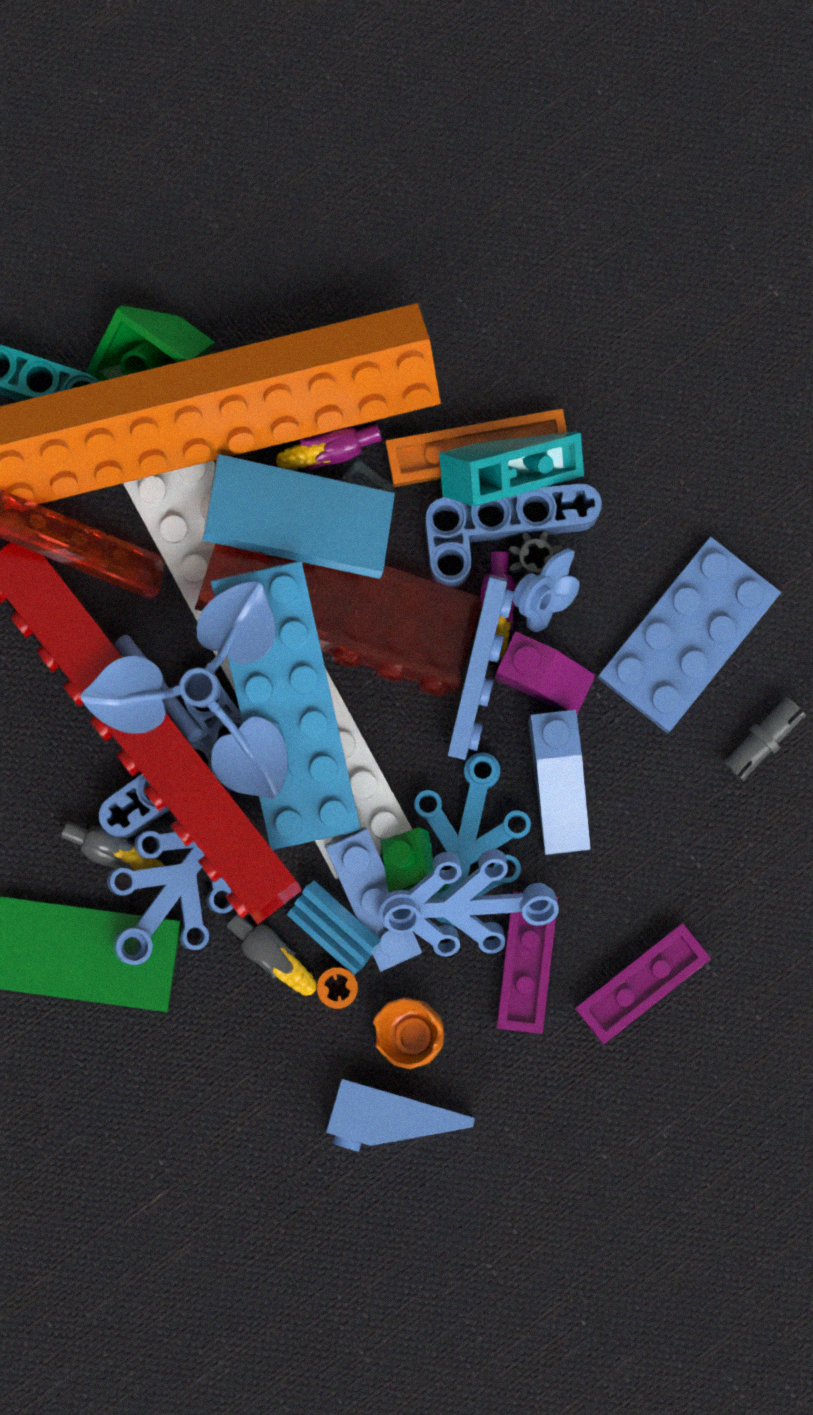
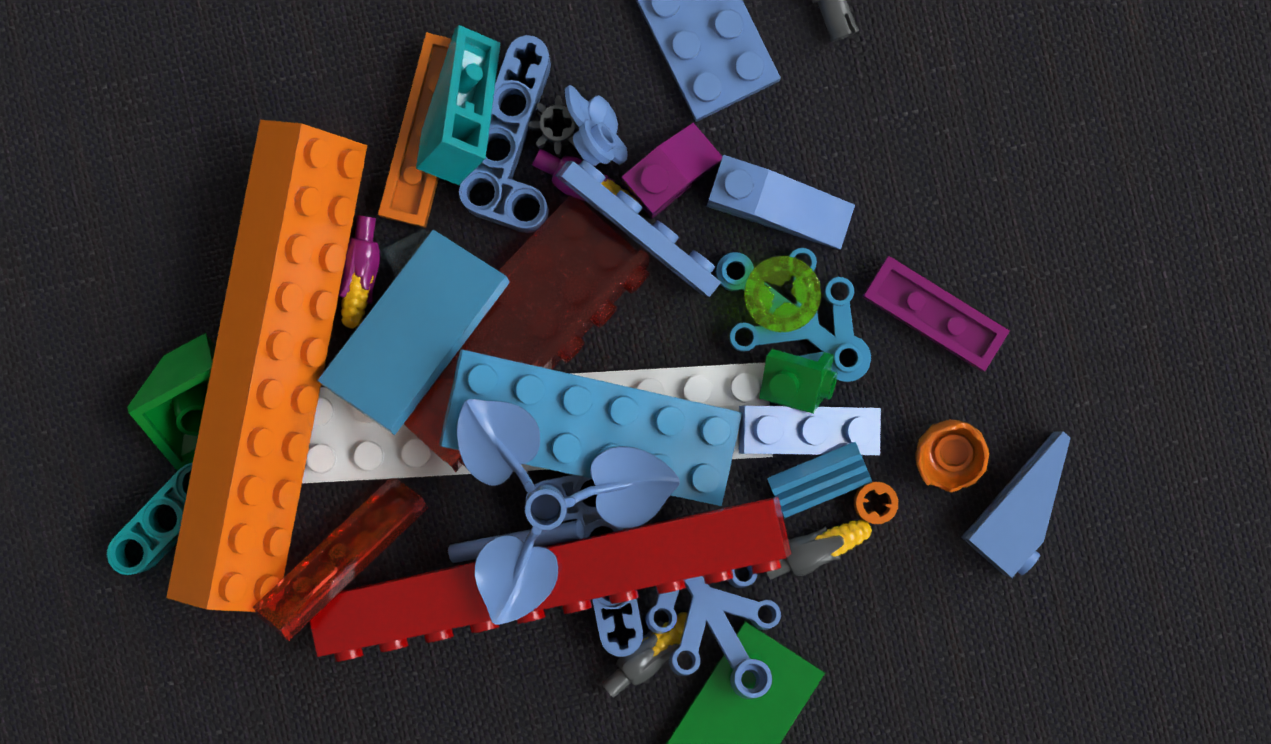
camera: 60 degrees left, 5 degrees up
(463, 904) = (843, 401): medium blue plant -> none
(468, 801) = (760, 297): none -> clear neon green gear
(642, 983) = (1005, 215): magenta plate -> none

